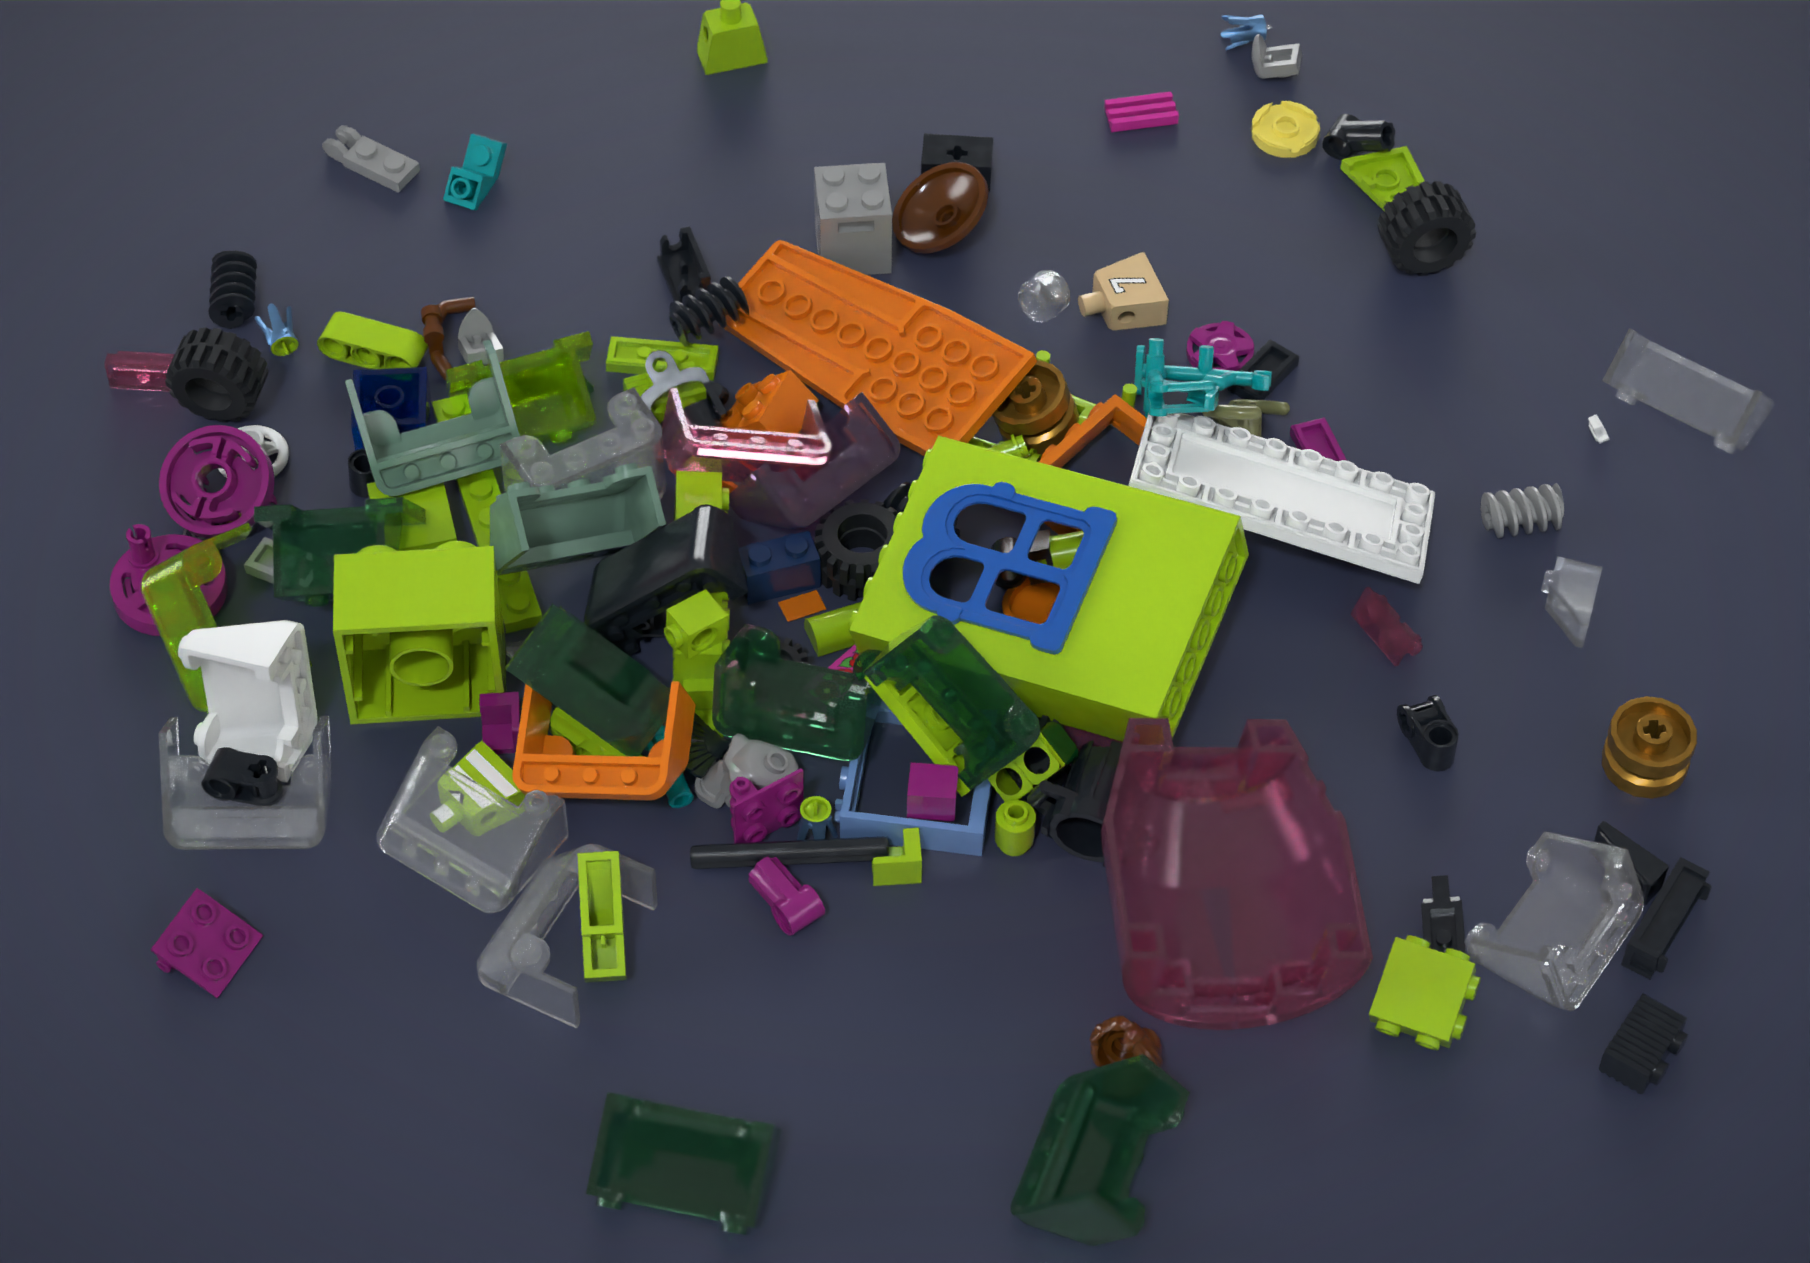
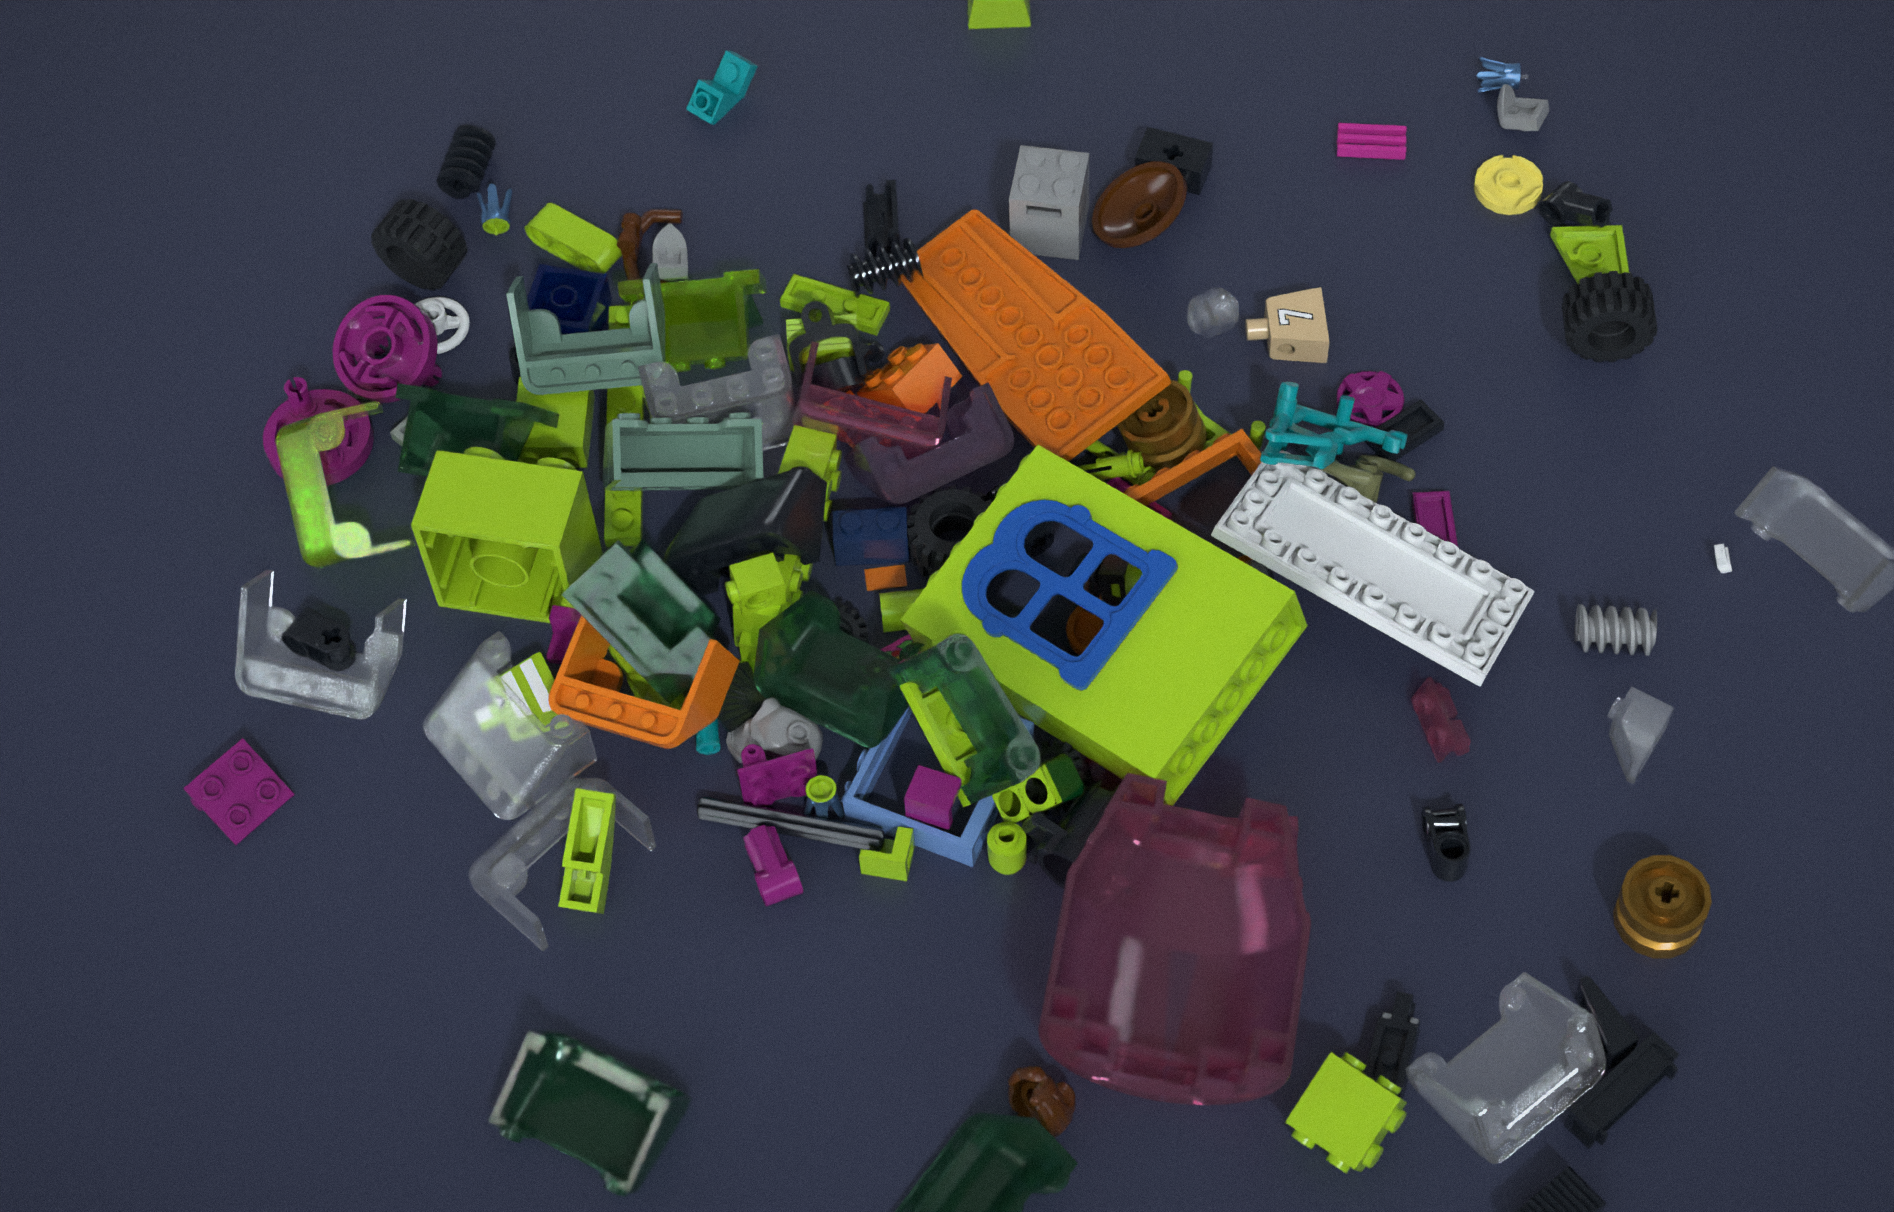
camera: 20 degrees right, 5 degrees up
(138, 370) = (355, 221): clear pink panel -> none
(254, 690) = (349, 561): white windscreen -> none
(371, 159) = (635, 58): light grey hinge -> none

